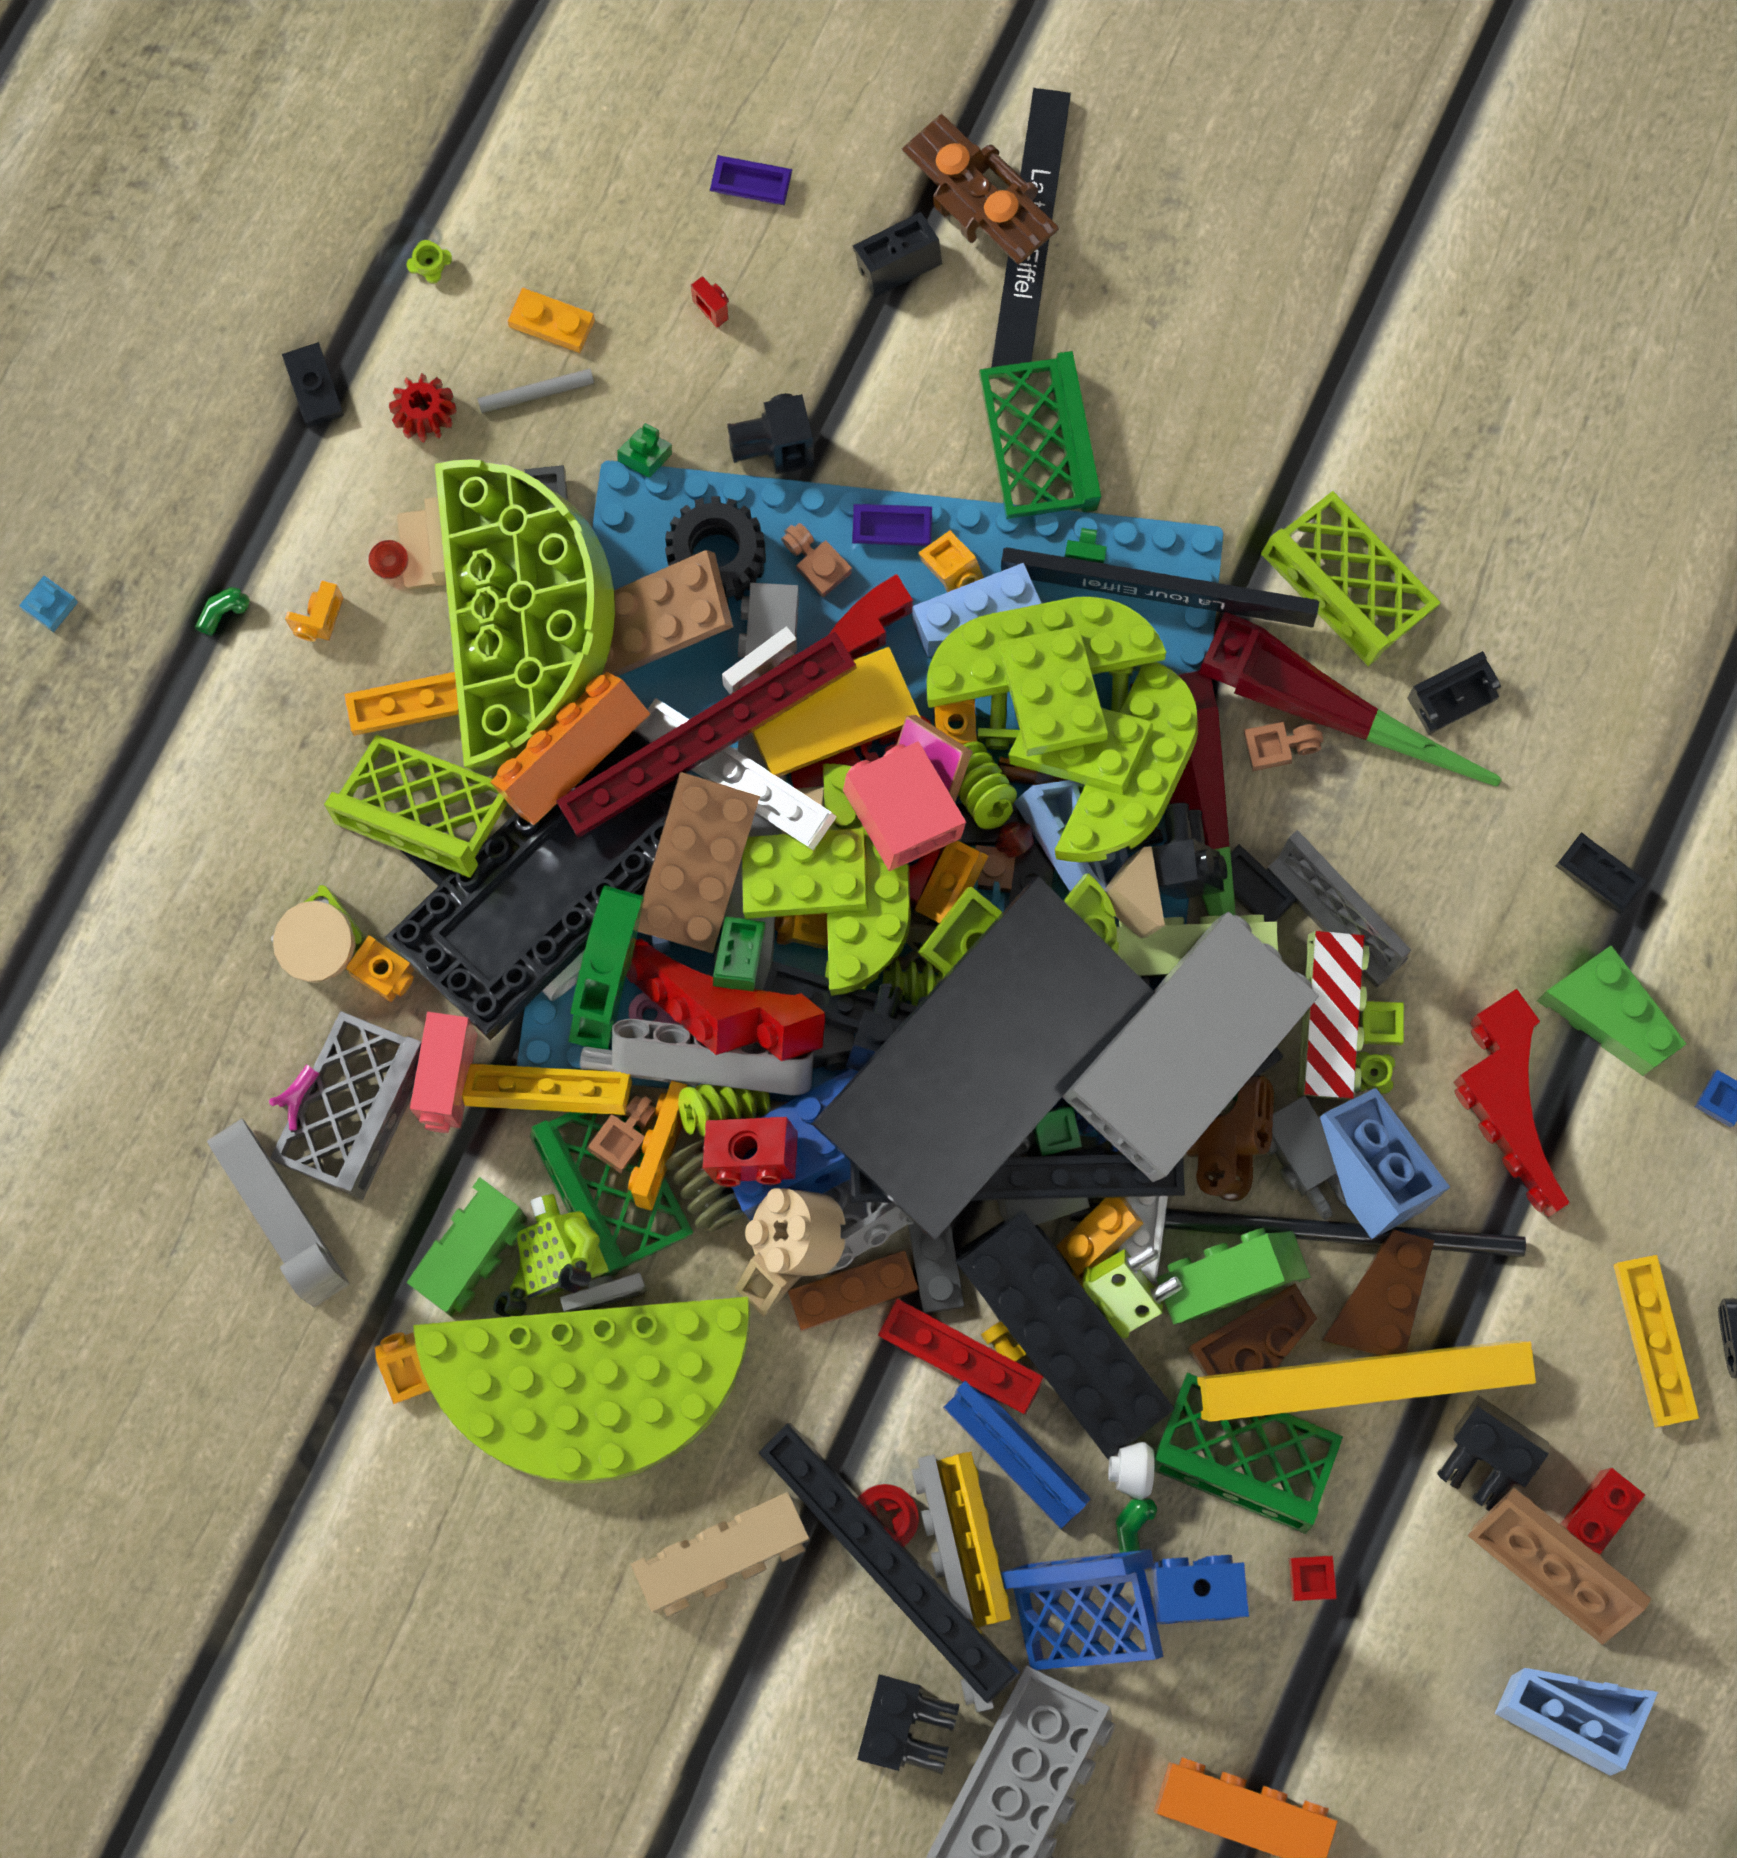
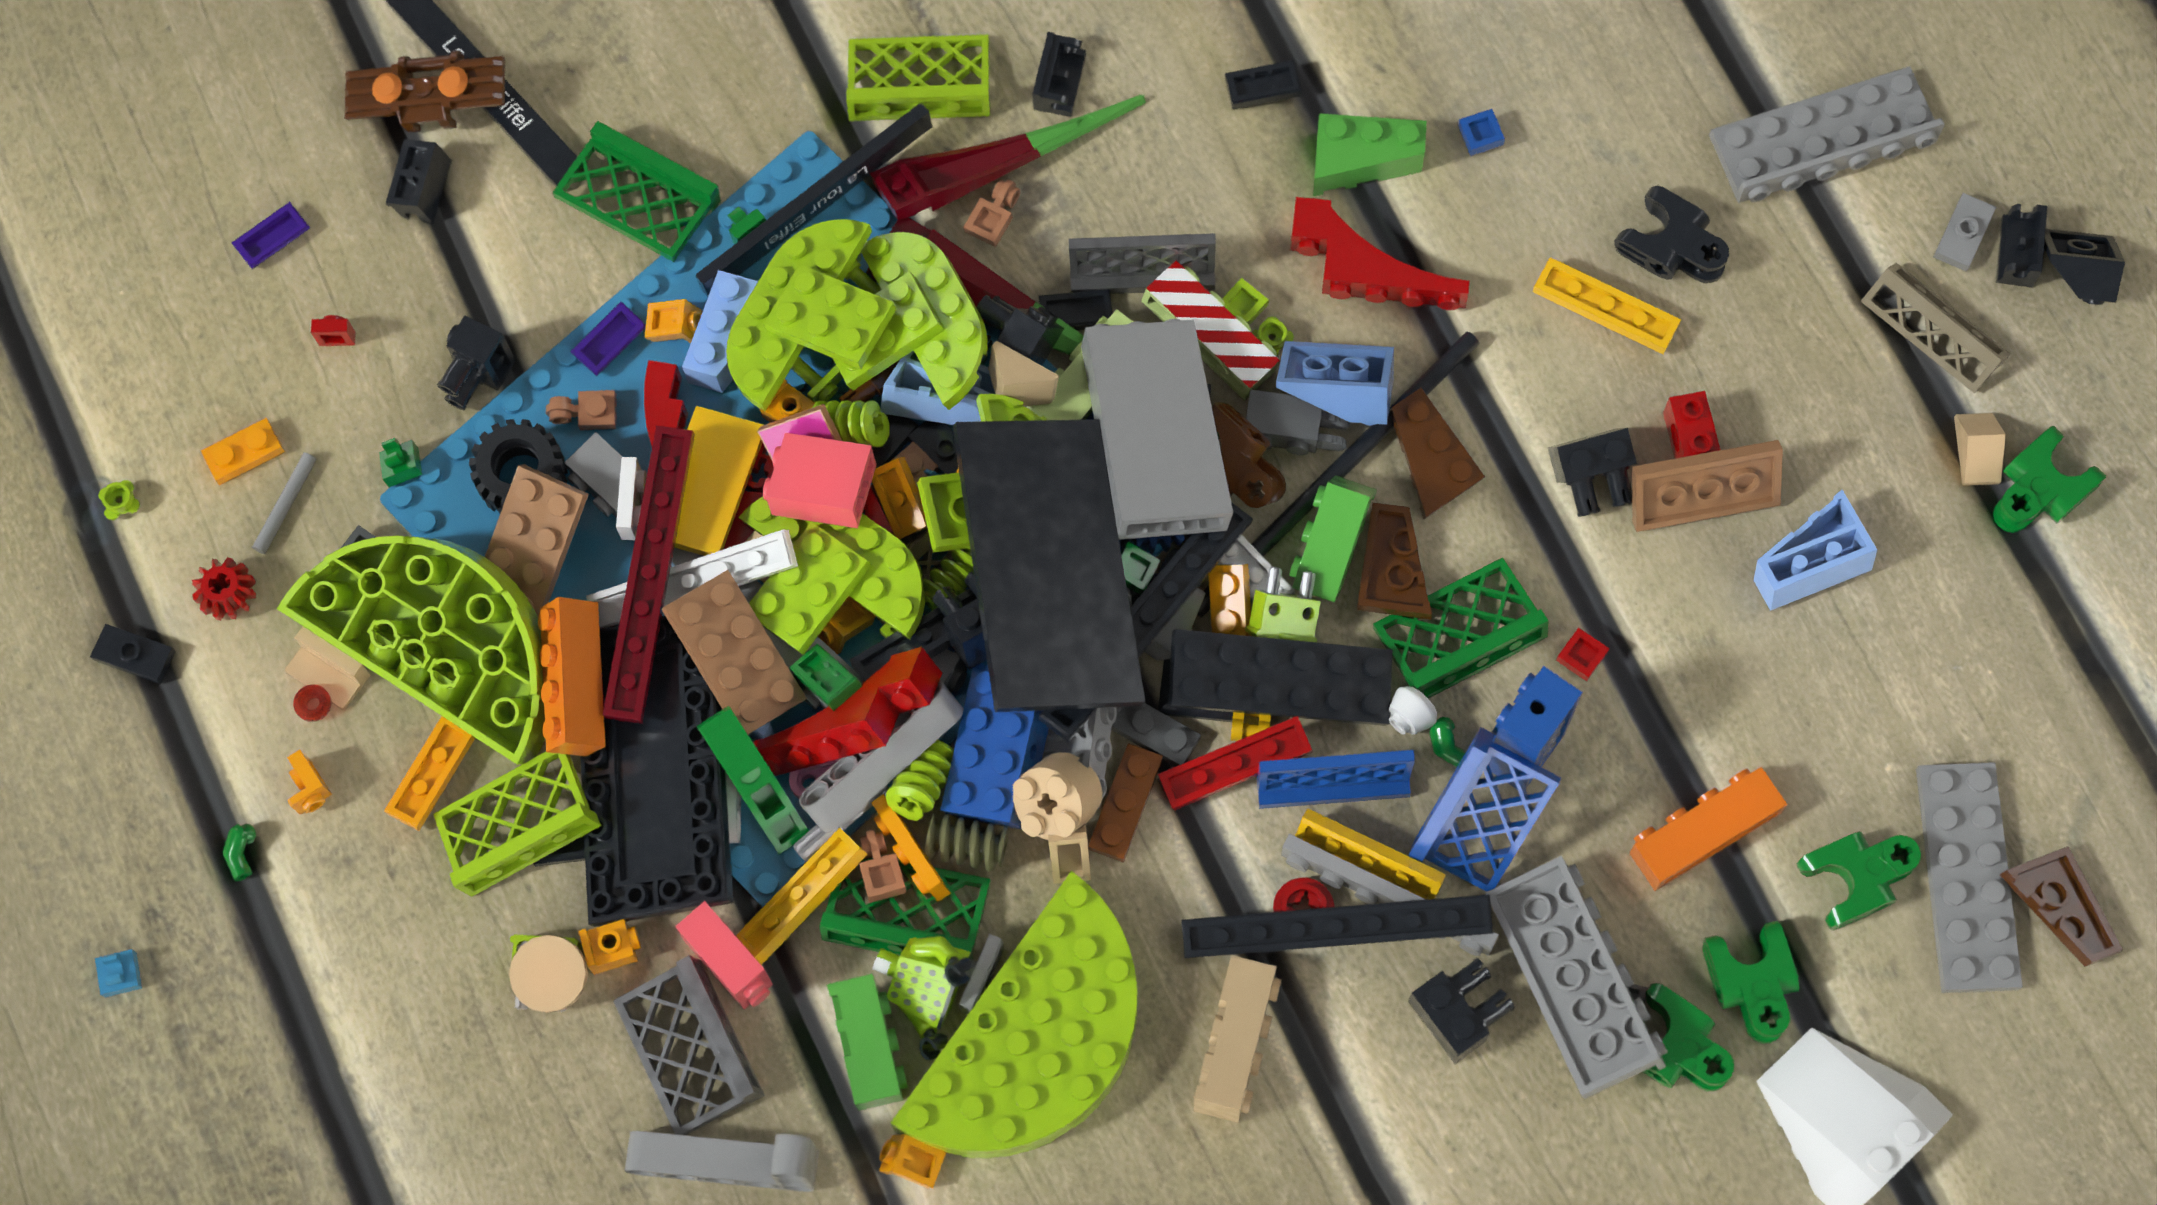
camera: 45 degrees left, 5 degrees down
(295, 1094) = (646, 1080): dark pink bar -> none
(729, 1141) = (952, 785): red brick -> none
(1014, 839) = (906, 432): clear red plate -> none
(1366, 1380) = (1478, 507): yellow tile -> none

